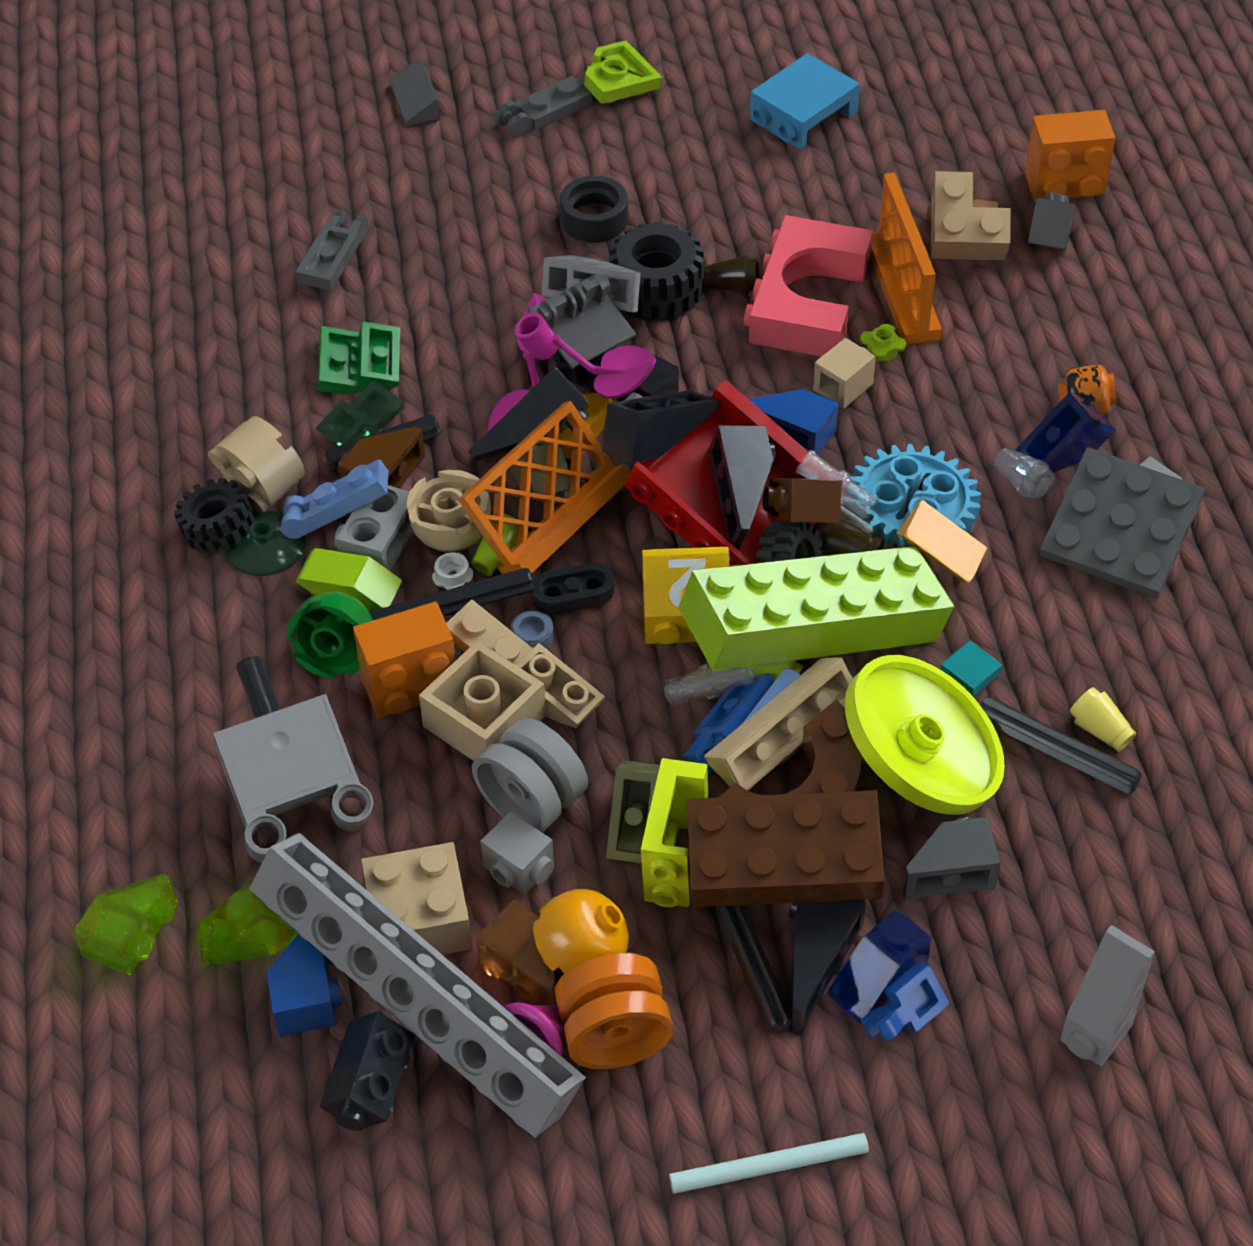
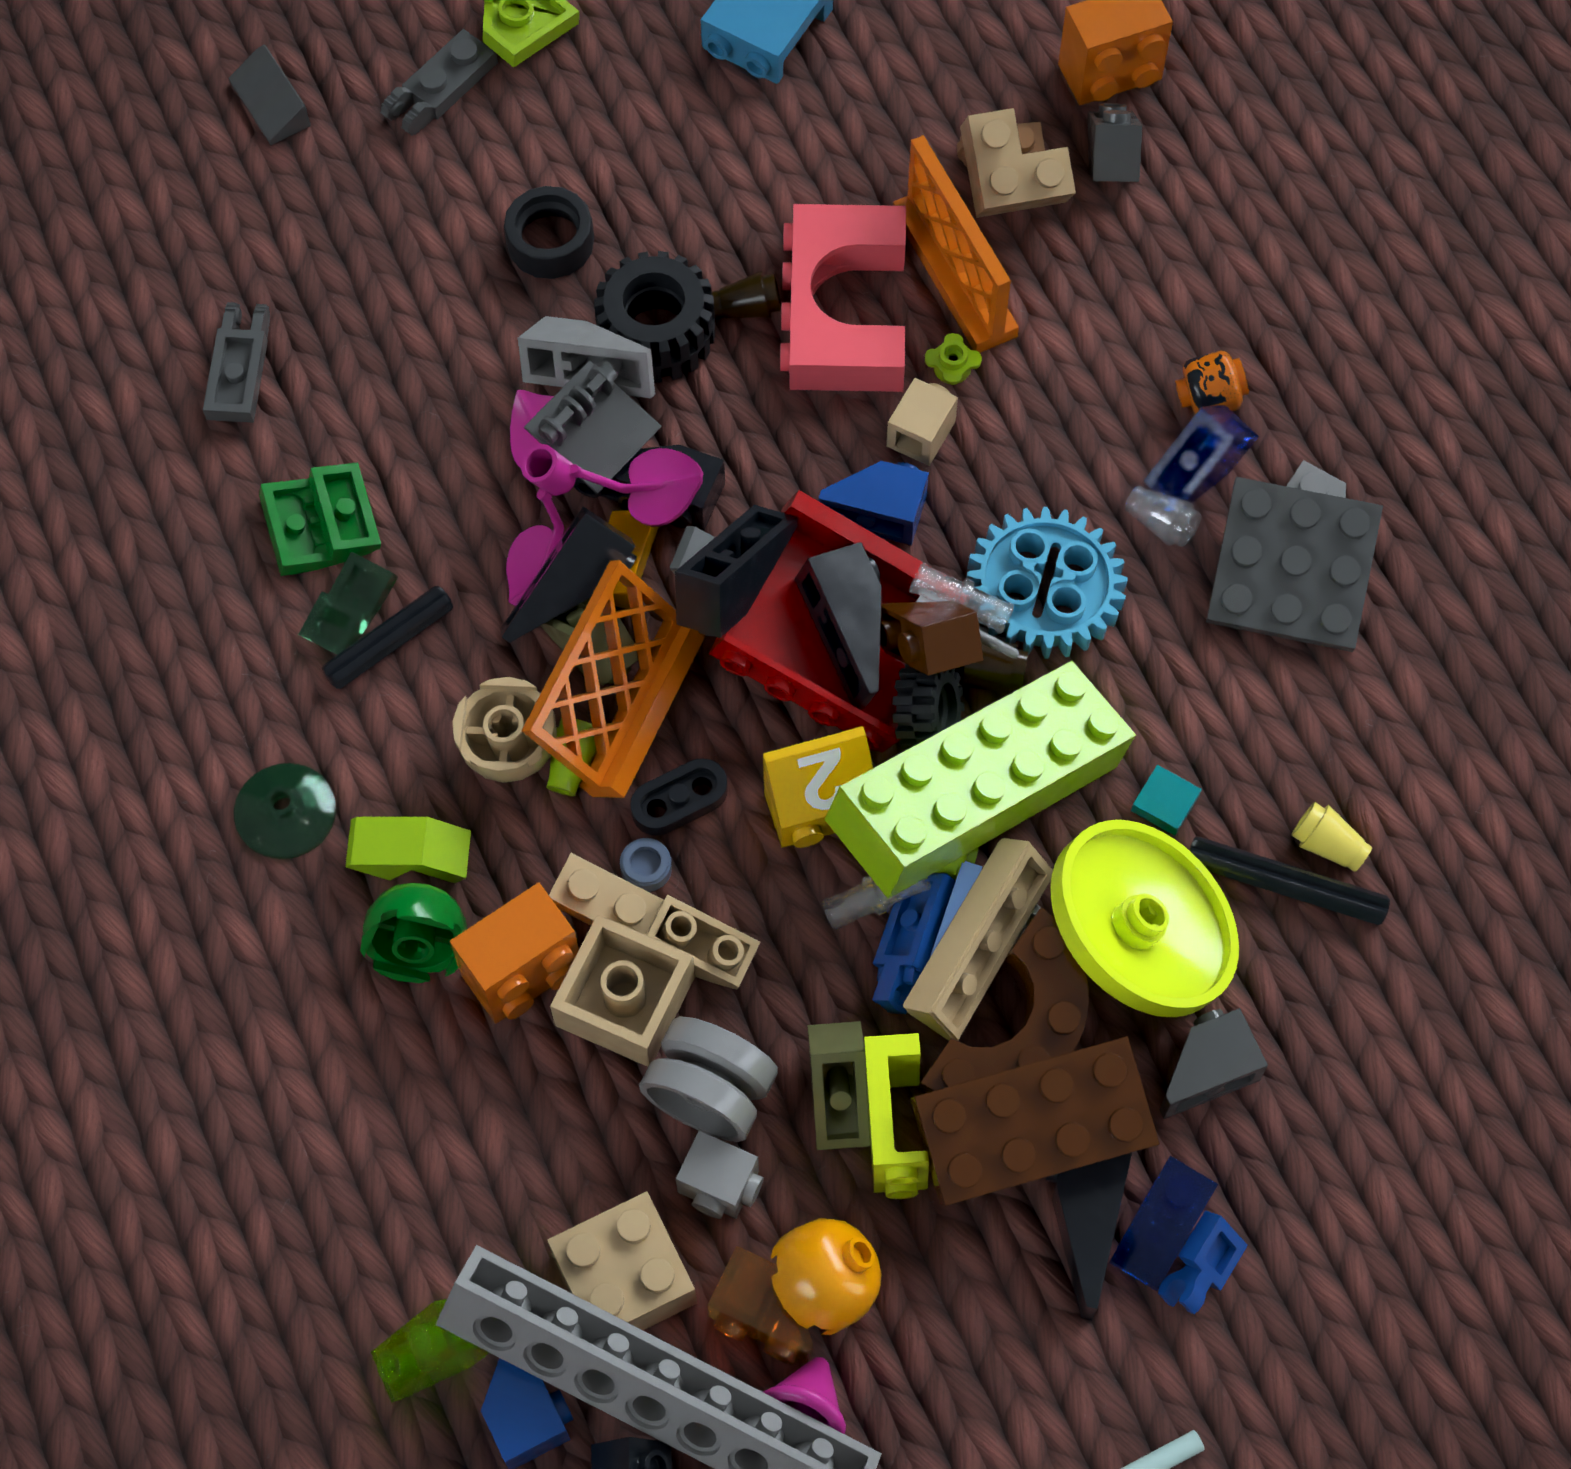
camera: 15 degrees left, 15 degrees up
(124, 922) = (288, 1377): clear neon green slope -> none
(225, 501) = (198, 777): black tyre -> none
(258, 463) = (247, 713): tan brick -> none
(286, 760) = (418, 1131): light grey piece -> none
(334, 499) = (360, 744): medium blue plate -> none
(377, 529) = (430, 767): light grey brick -> none
(398, 450) = (396, 675): reddish brown slope -> none
(452, 571) = (524, 794): white plate -> none
(482, 592) = (542, 850): black axle -> none
(613, 1011) = (889, 1363): orange wheel -> none
(755, 968) = (1028, 1259): black axle -> none
(942, 541) = (1098, 643): slope -> none
(1107, 997) = (1426, 1218): light grey slope -> none

